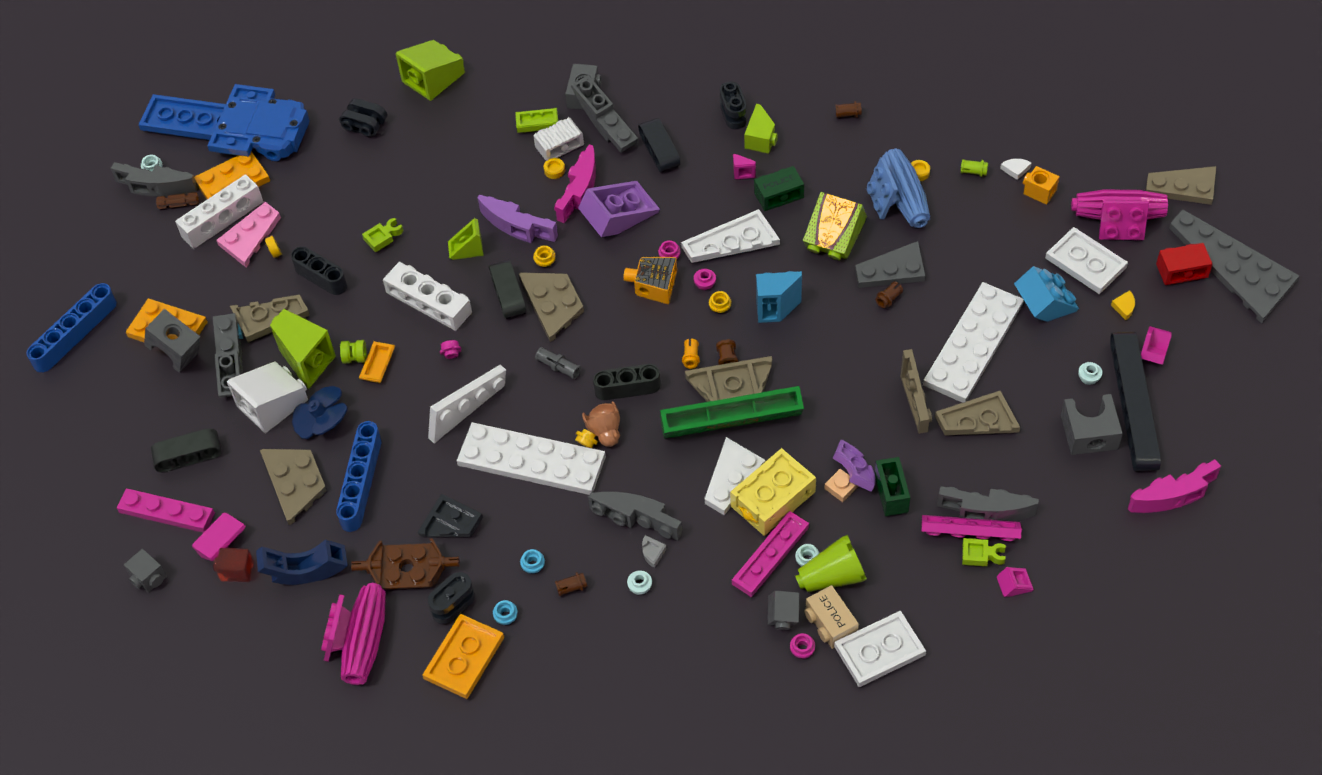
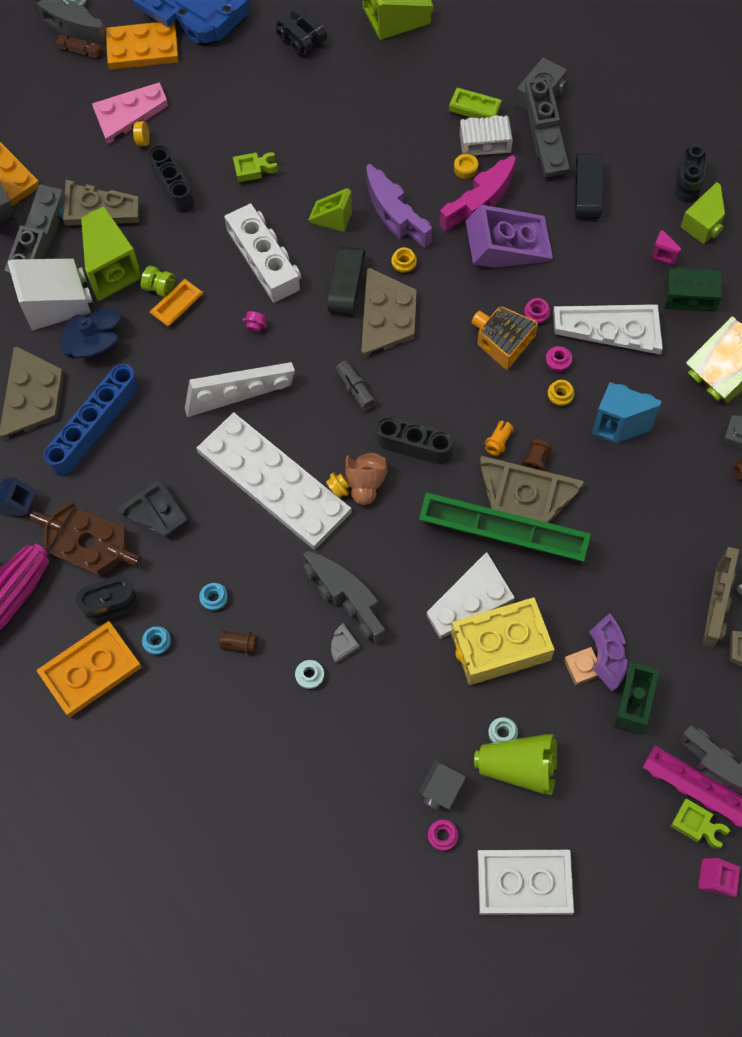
camera: 25 degrees right, 10 degrees up
(219, 211) = (109, 74): white brick -> none
(770, 554) = (463, 710): dark pink plate -> none
(830, 616) = (489, 817): tan brick -> none

